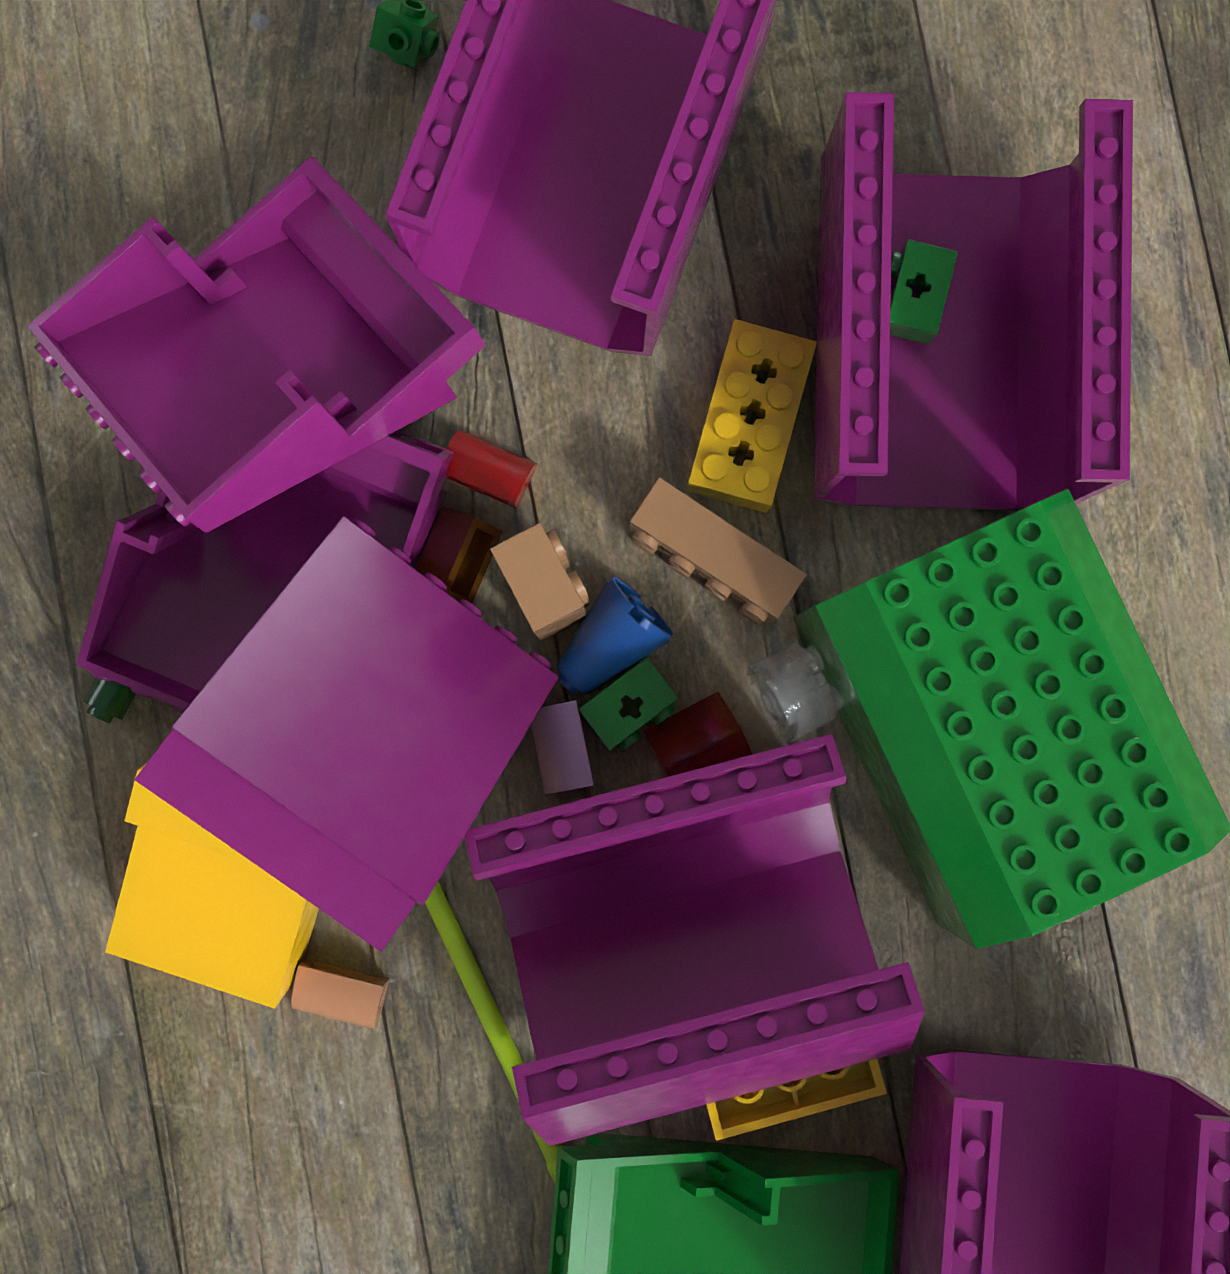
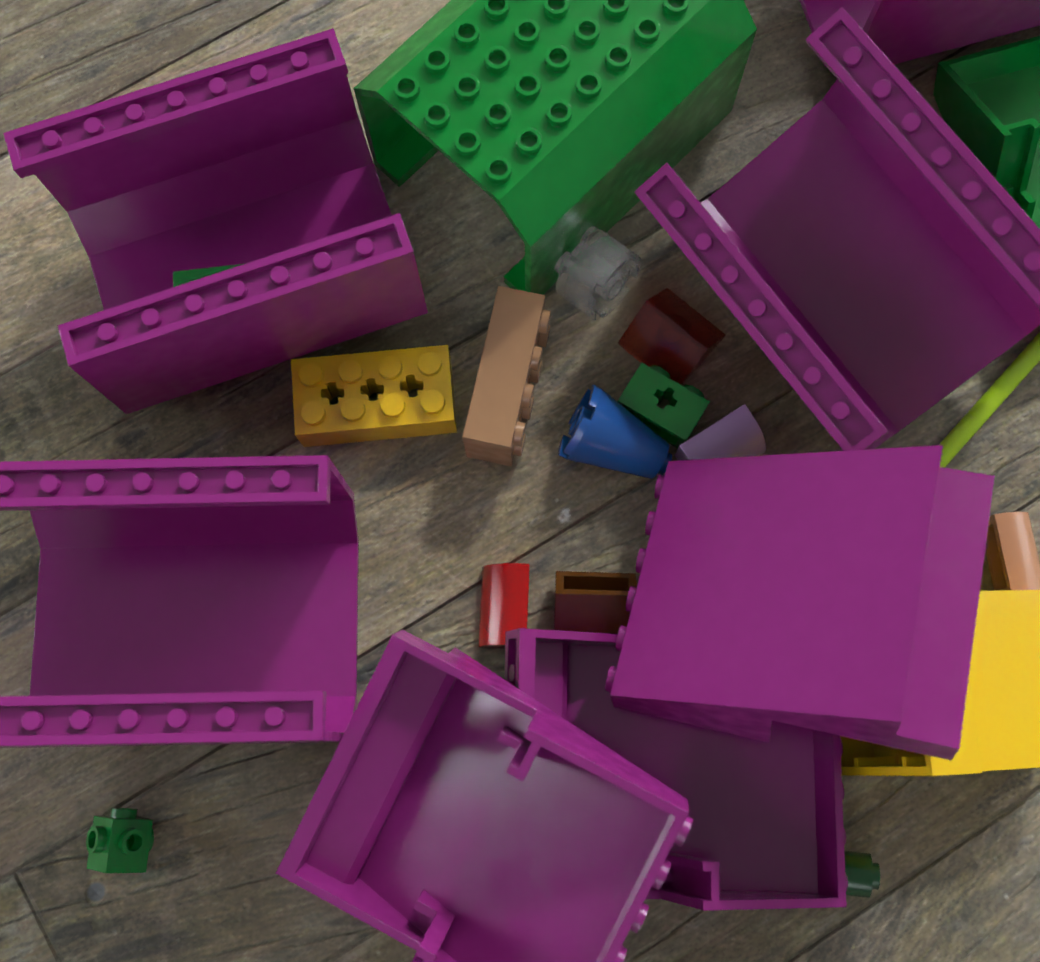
camera: 105 degrees left, 10 degrees down
(537, 576) = (597, 496): medium nougat brick -> none

